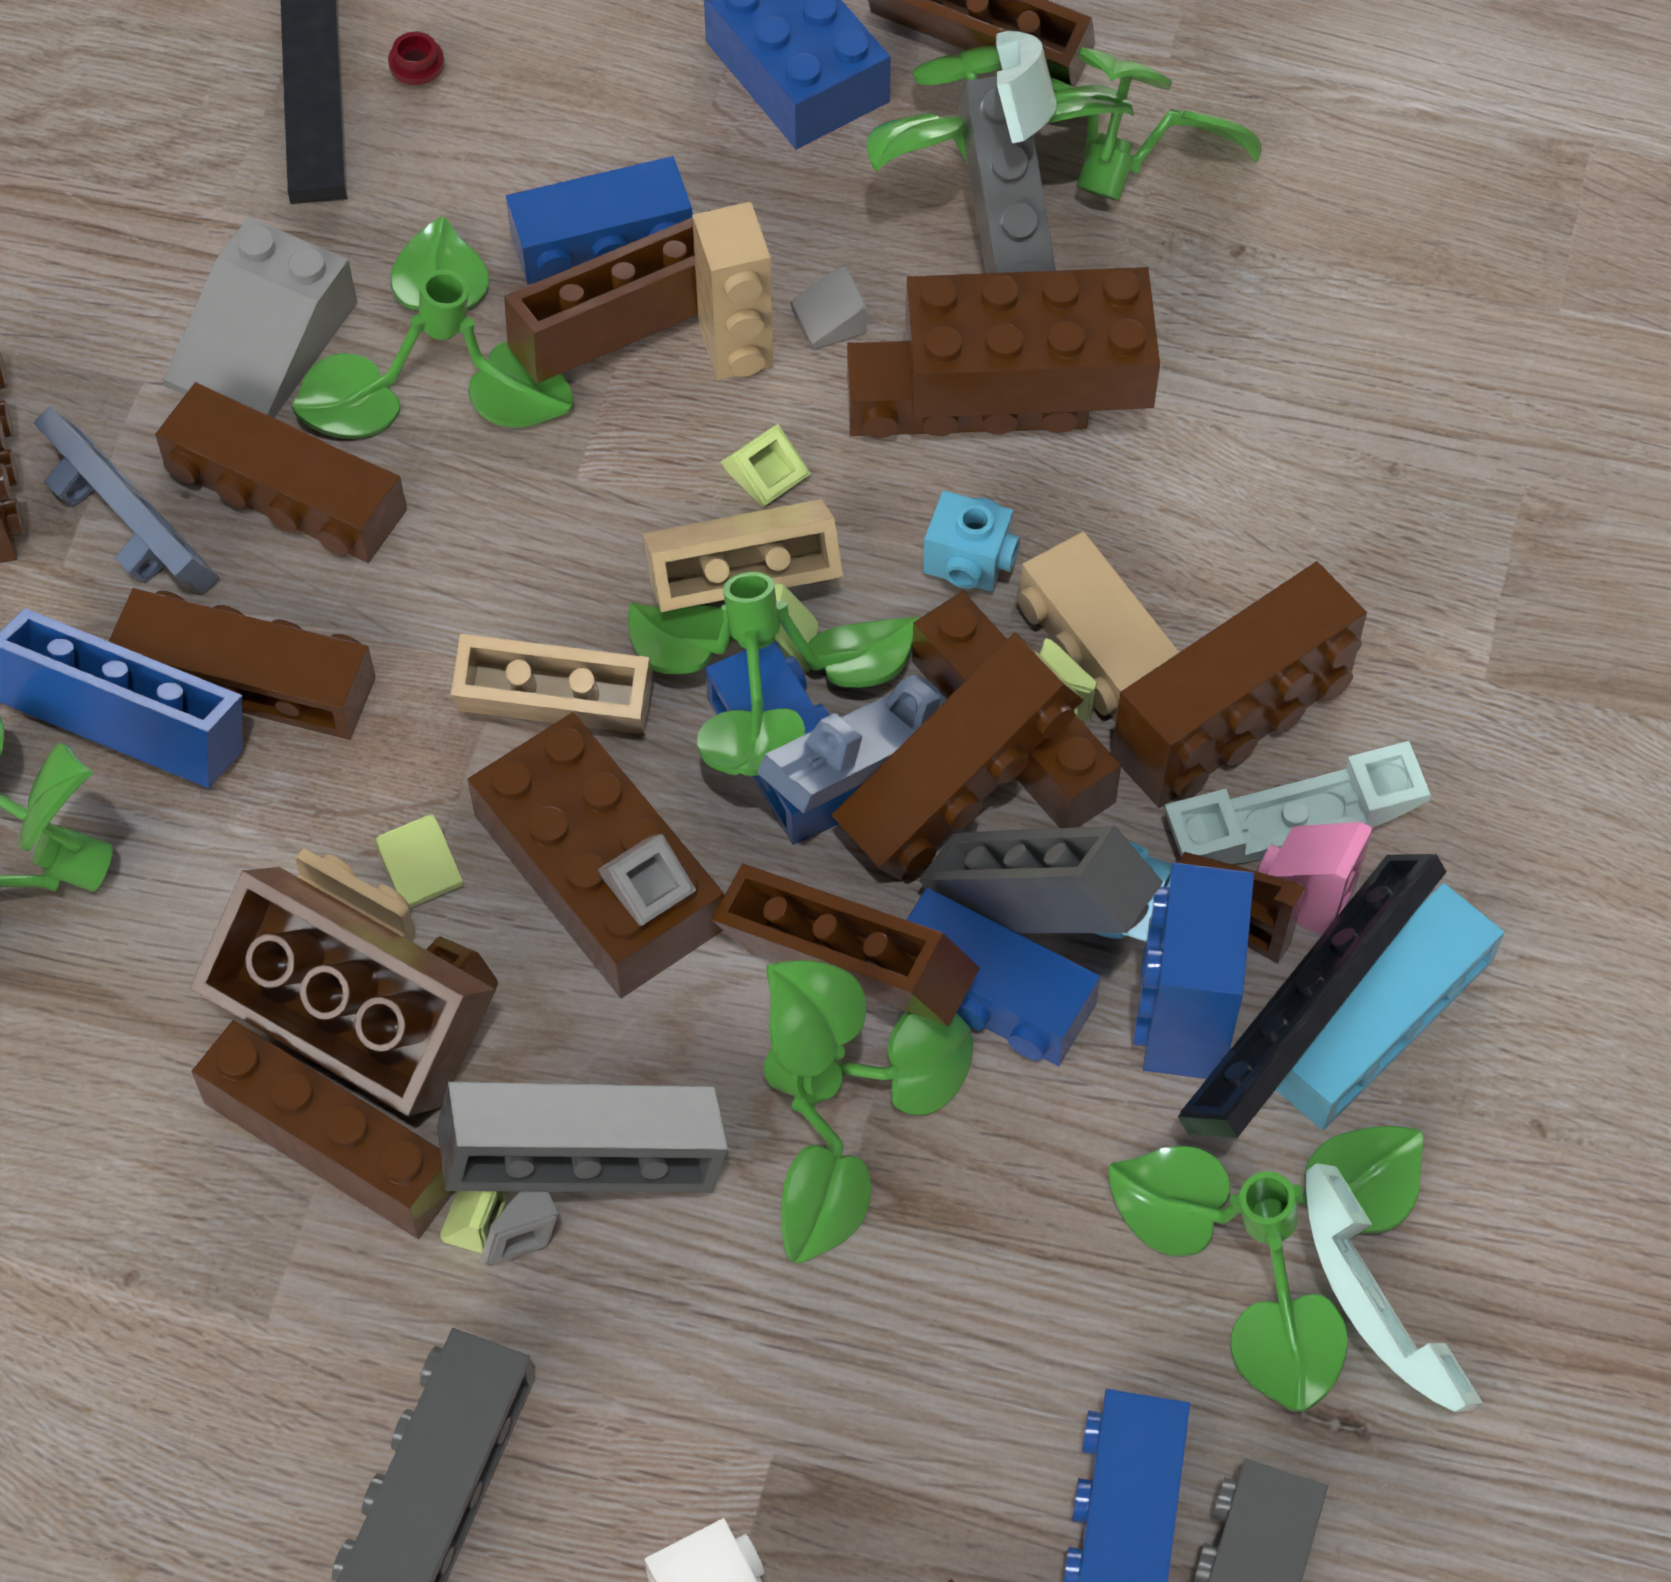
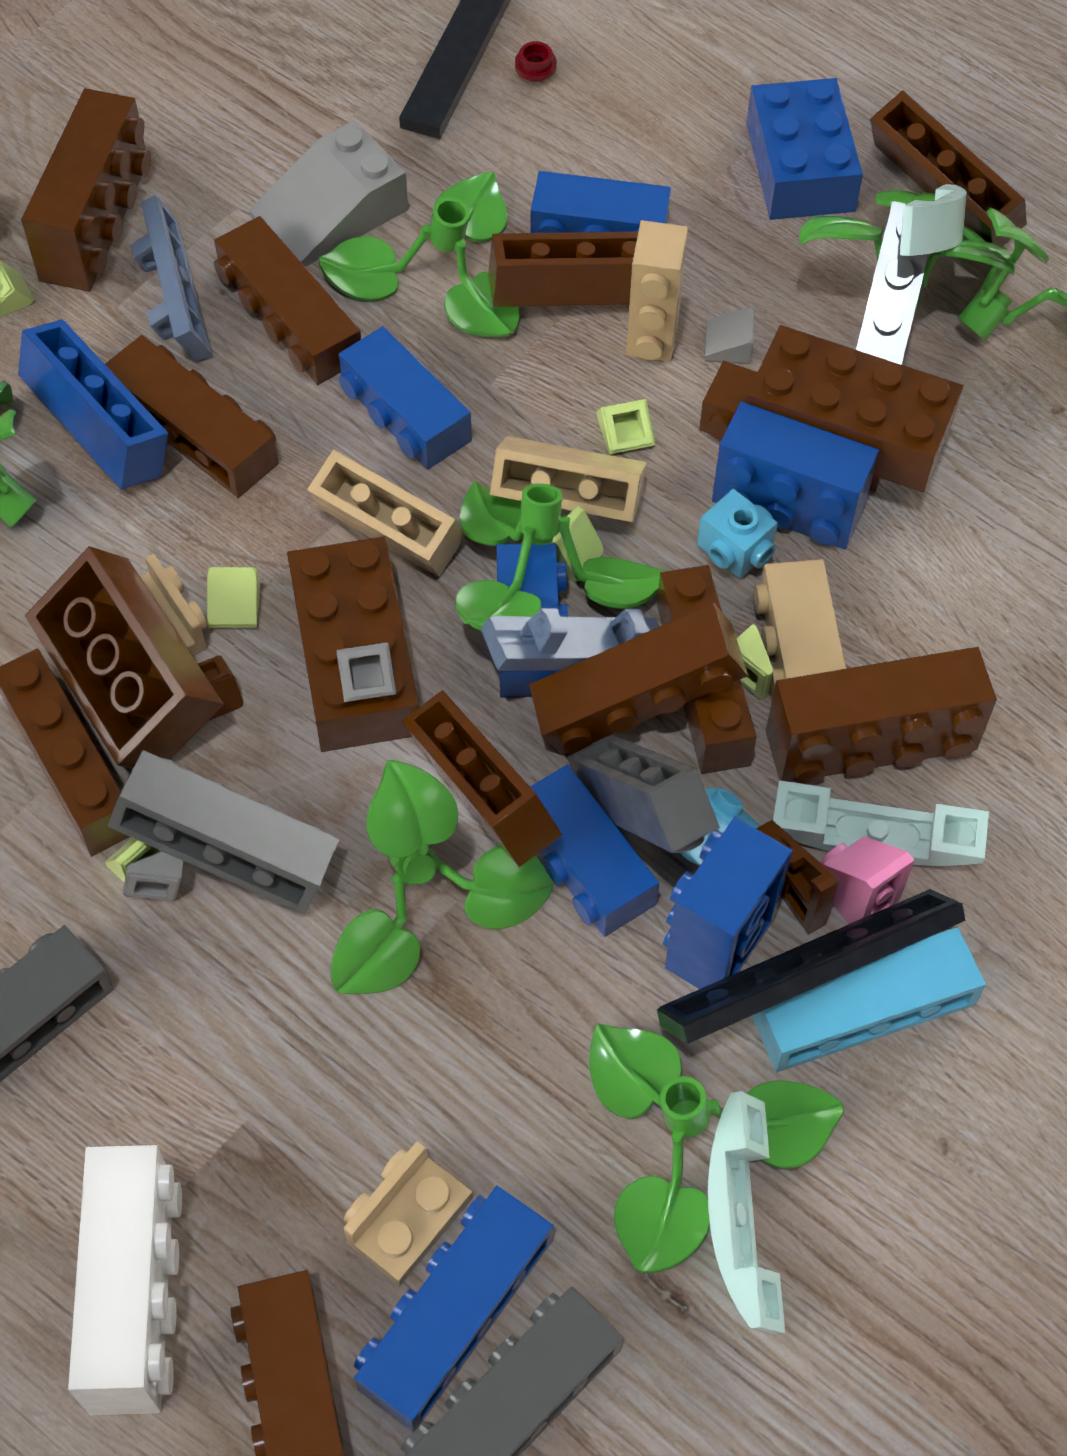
camera: 25 degrees right, 0 degrees up
(491, 536) = (404, 398): none -> blue brick
(1002, 442) = (796, 472): none -> blue brick
(1015, 1473) = (405, 1213): none -> tan bracket

